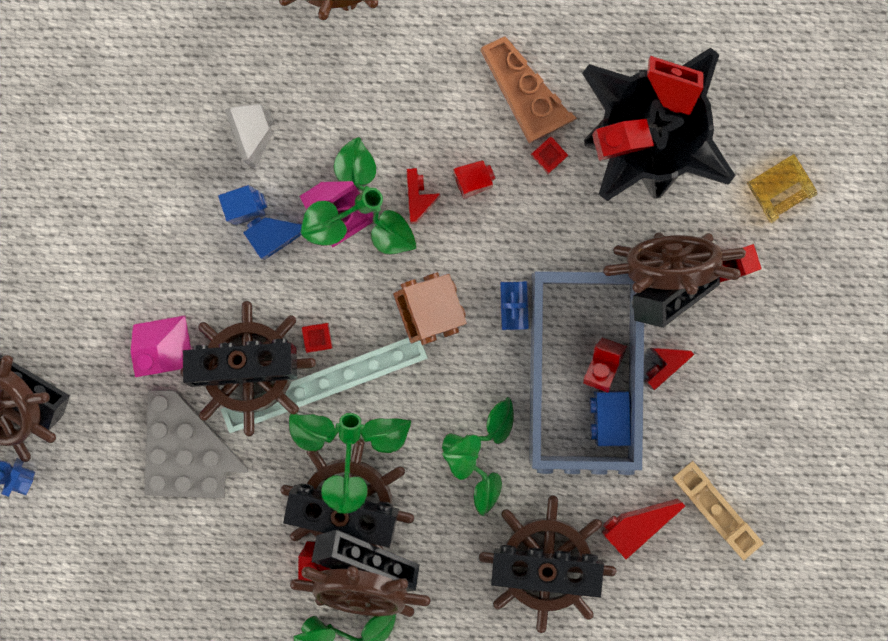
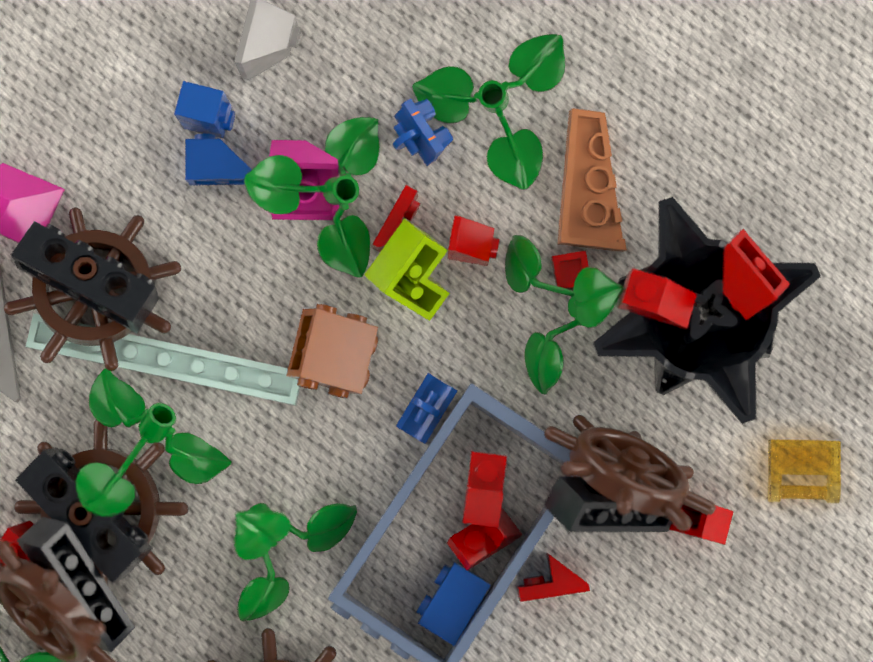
camera: 25 degrees right, 5 degrees down
(317, 337) = (190, 304): red plate -> none
(392, 86) = (449, 90): none -> green plant
(392, 130) = (416, 133): none -> blue hips
(443, 223) = (405, 270): none -> lime brick
(577, 169) = (590, 304): none -> green plant
(588, 334) = (484, 489): none -> red slope

